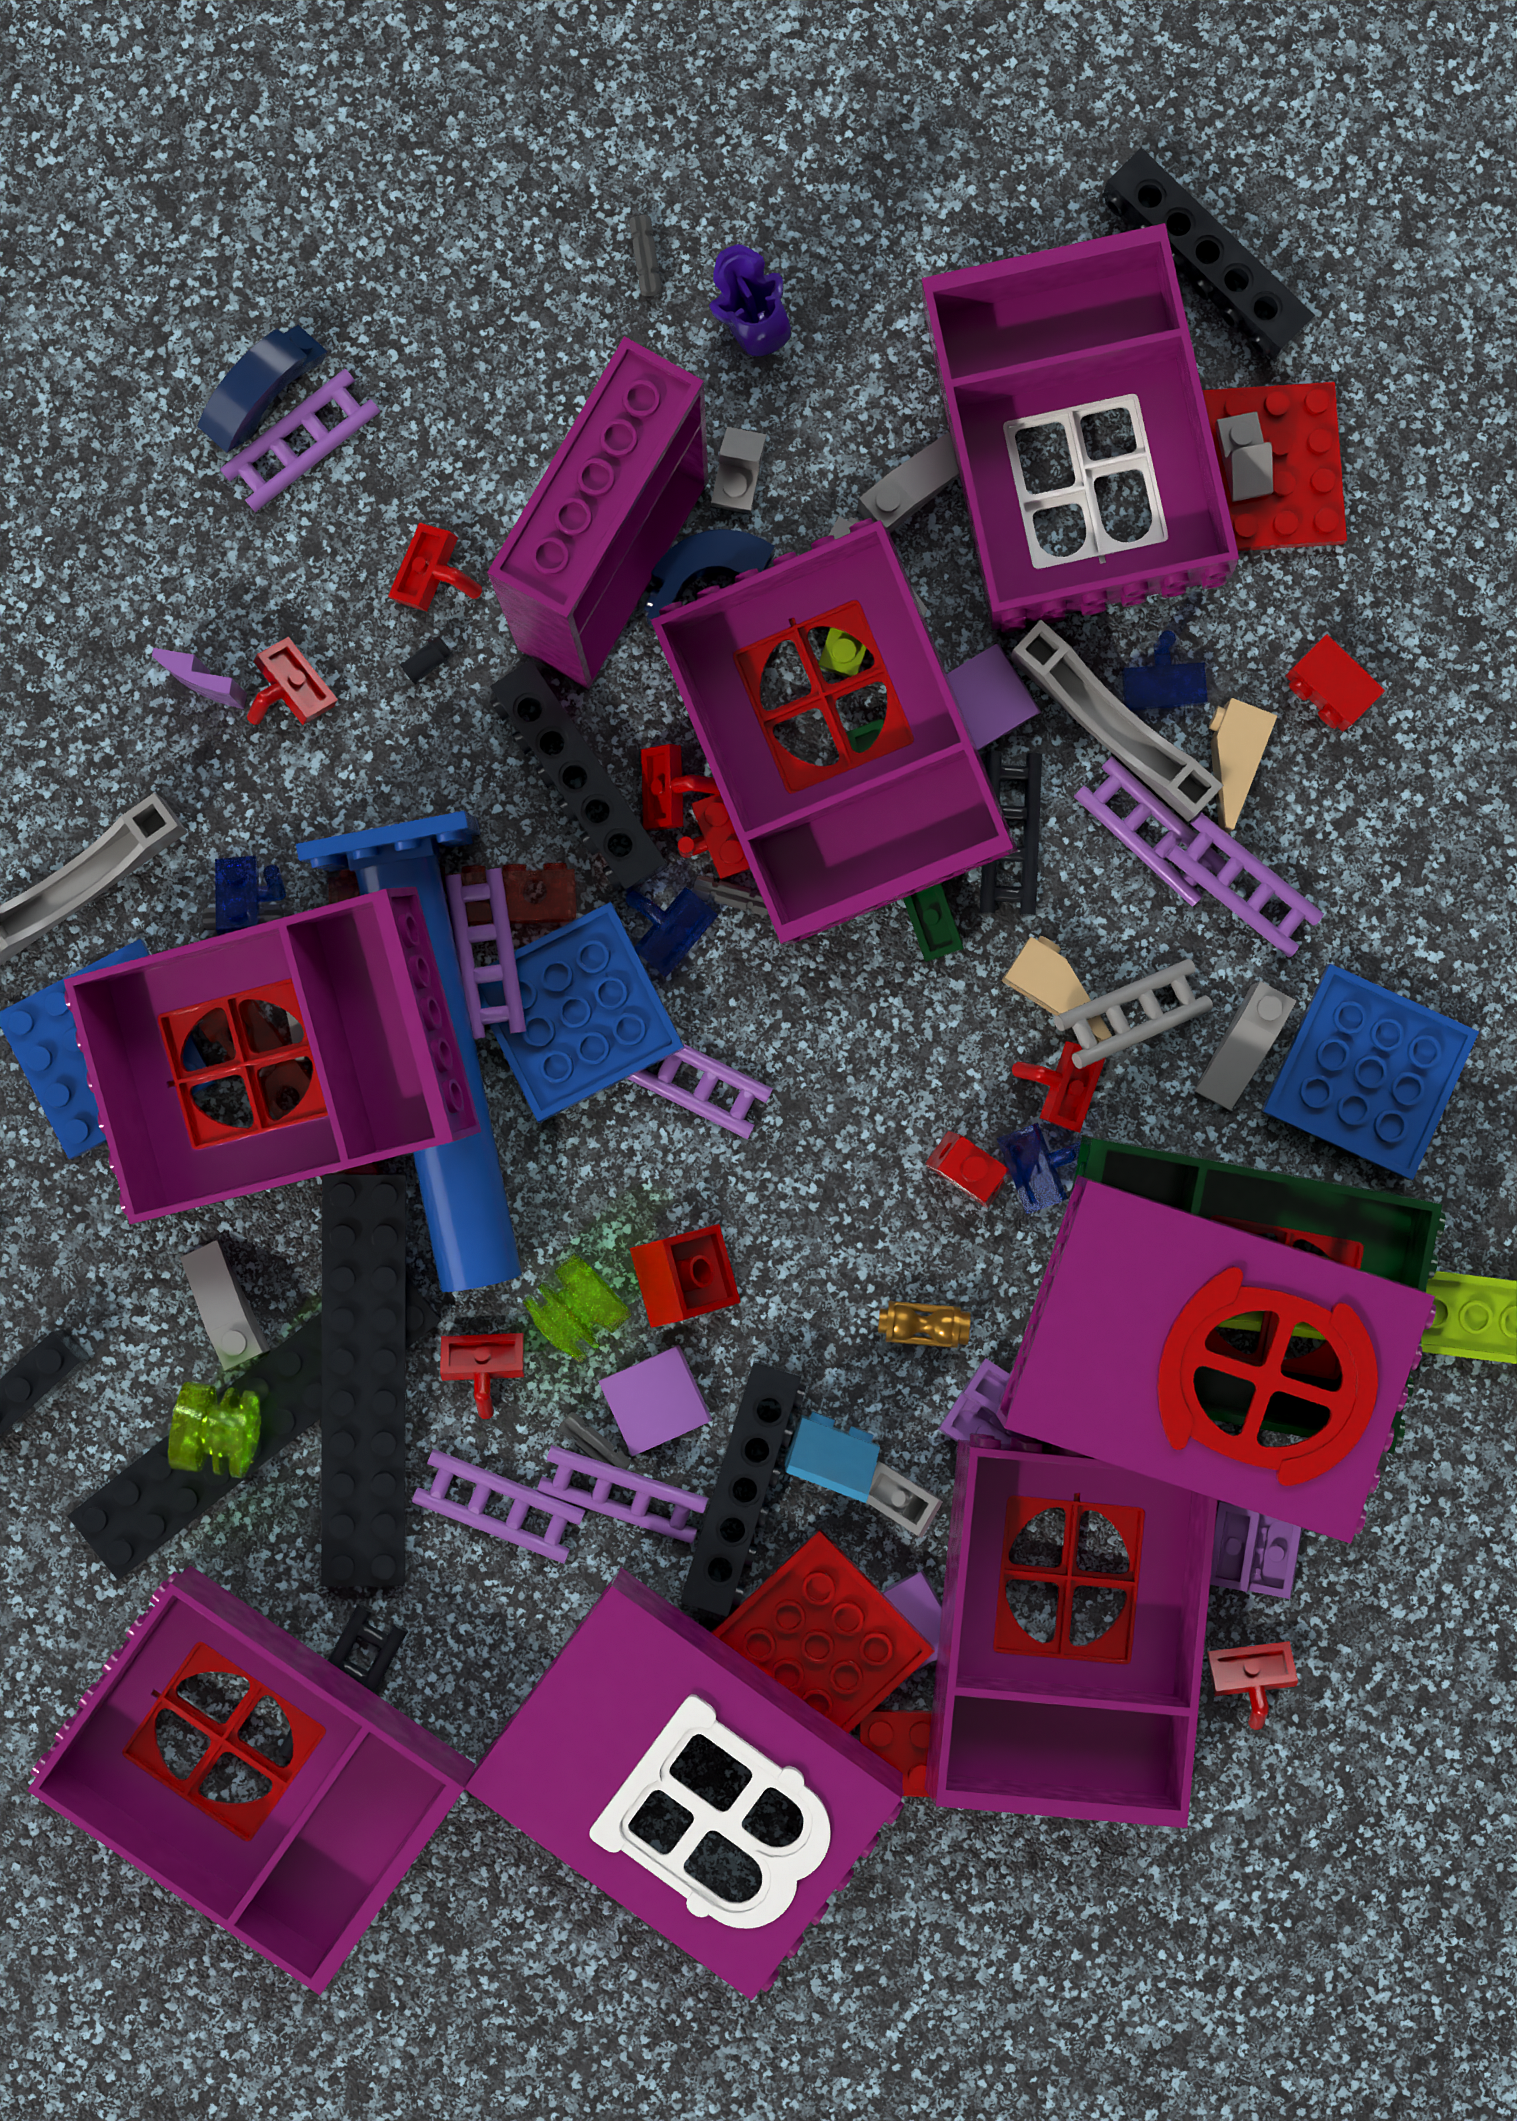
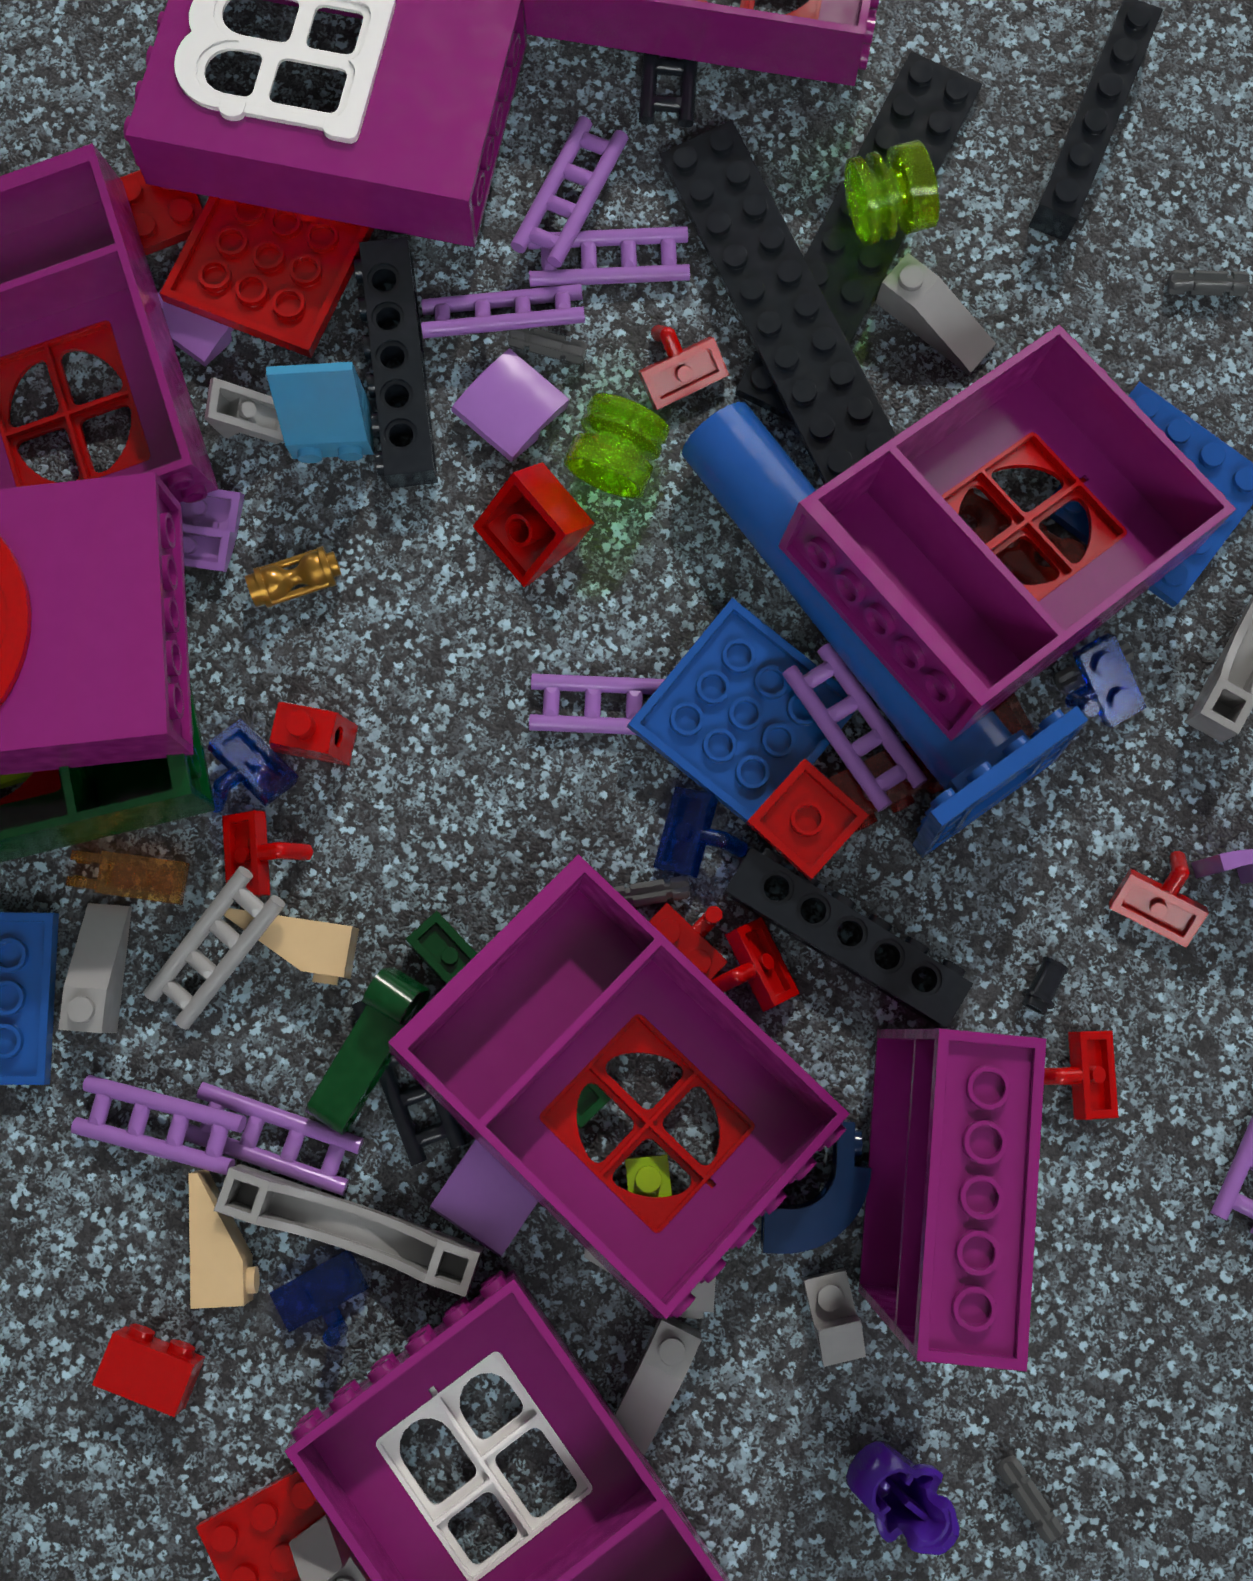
camera: 165 degrees right, 5 degrees down
(506, 1559) = (577, 212): none -> medium lavender bar
(566, 888) = (807, 819): none -> red plate
(1036, 864) = (365, 1055): none -> dark green beam
(1181, 1114) = (133, 876): none -> clear orange hinge

